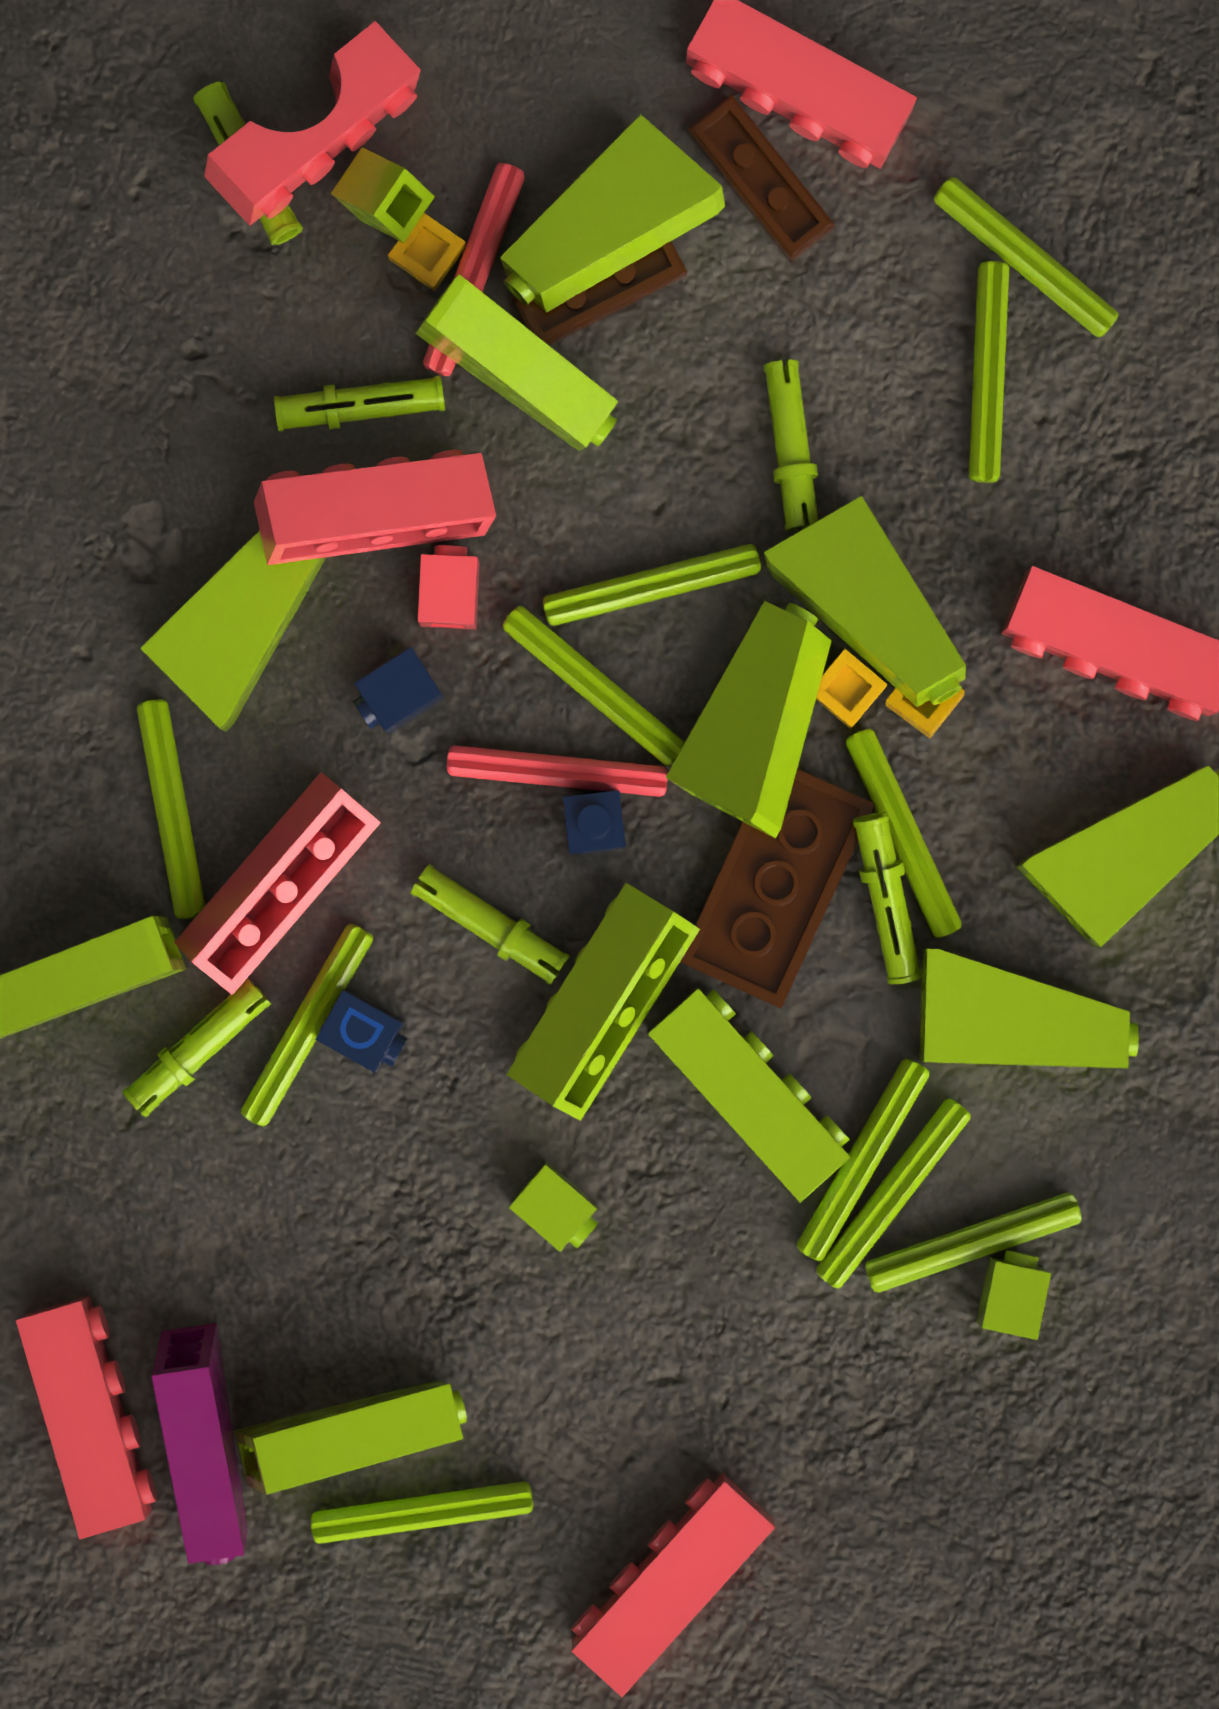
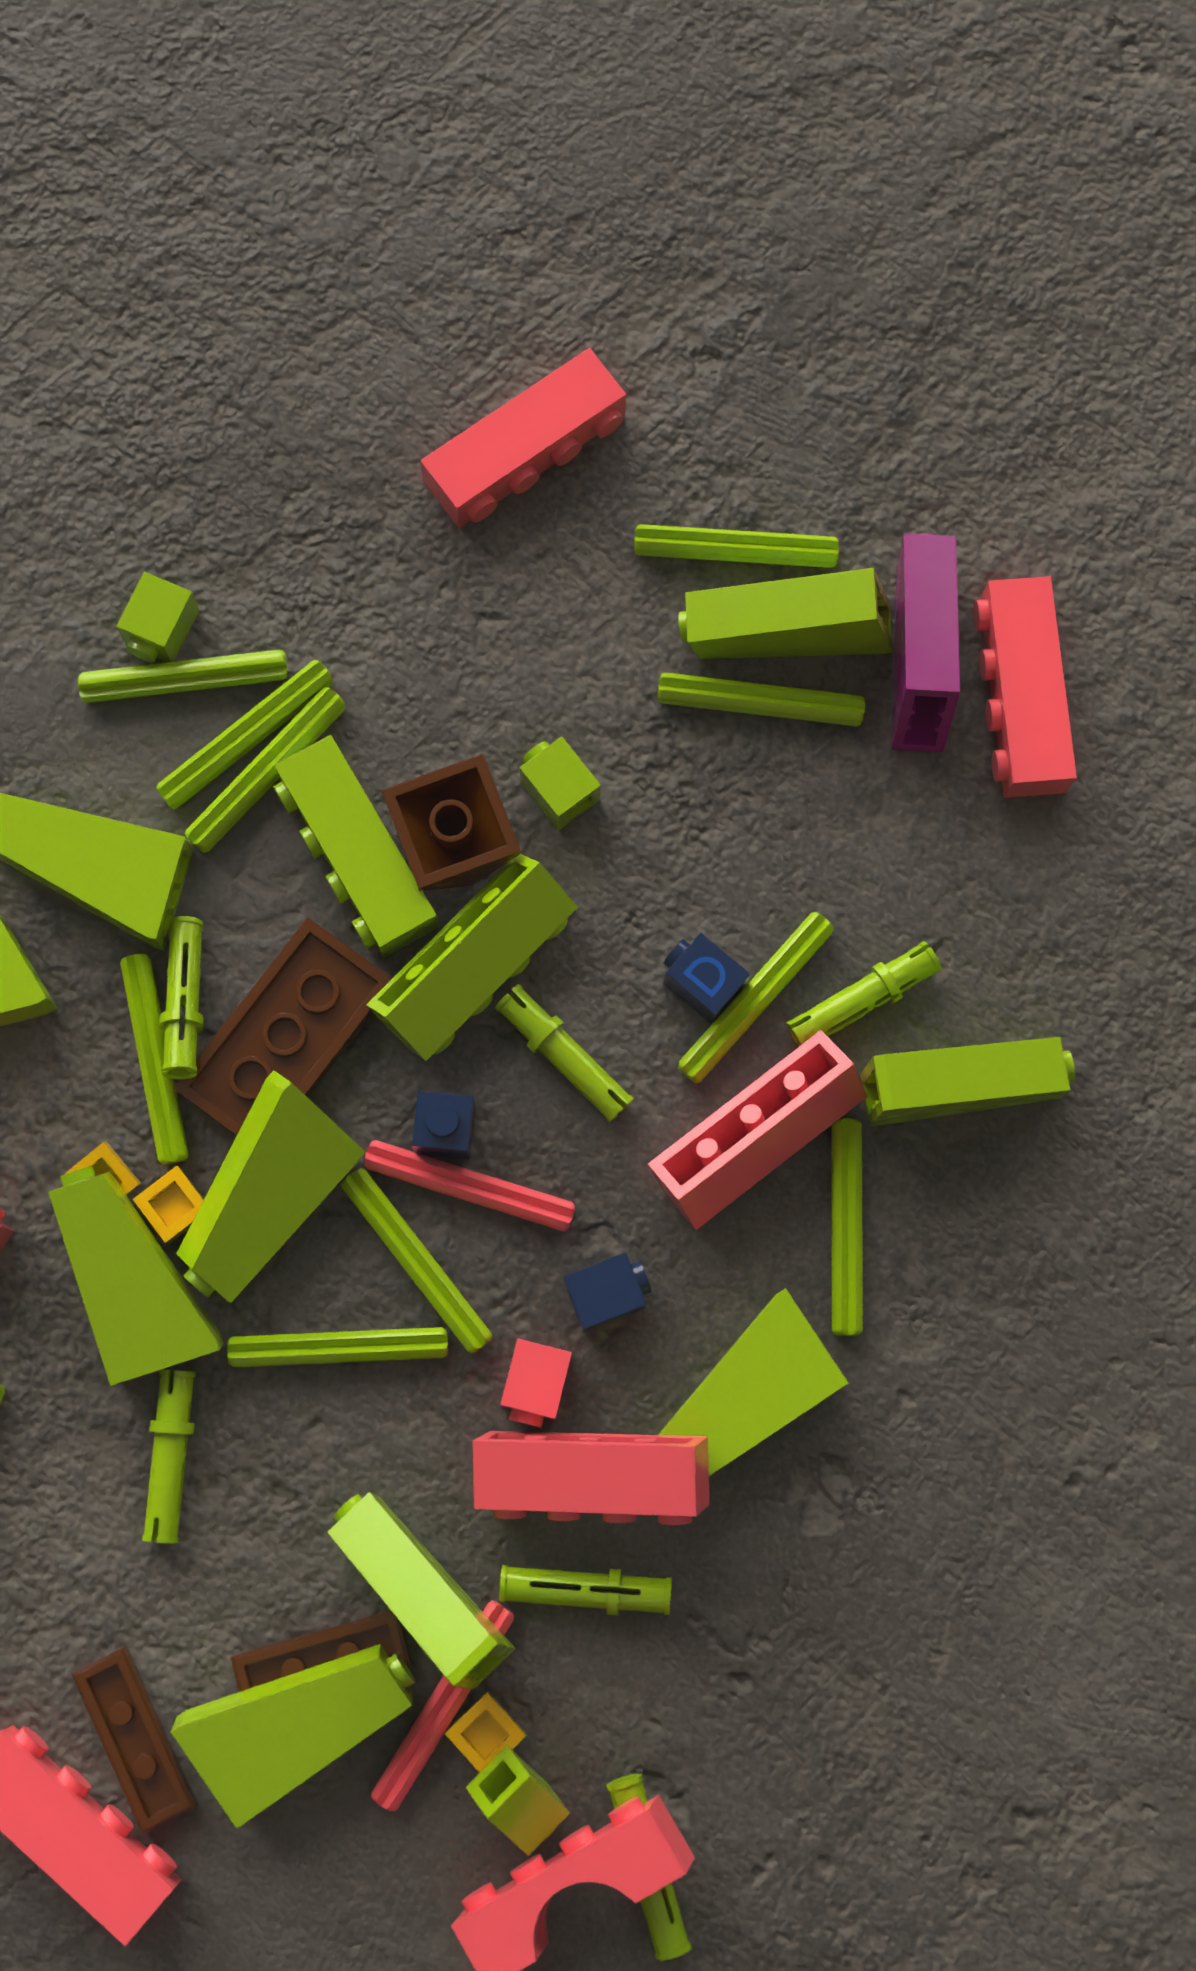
camera: 175 degrees left, 10 degrees down
(362, 1346) = (761, 699): none -> lime axle
(653, 1134) = (452, 825): none -> reddish brown slope

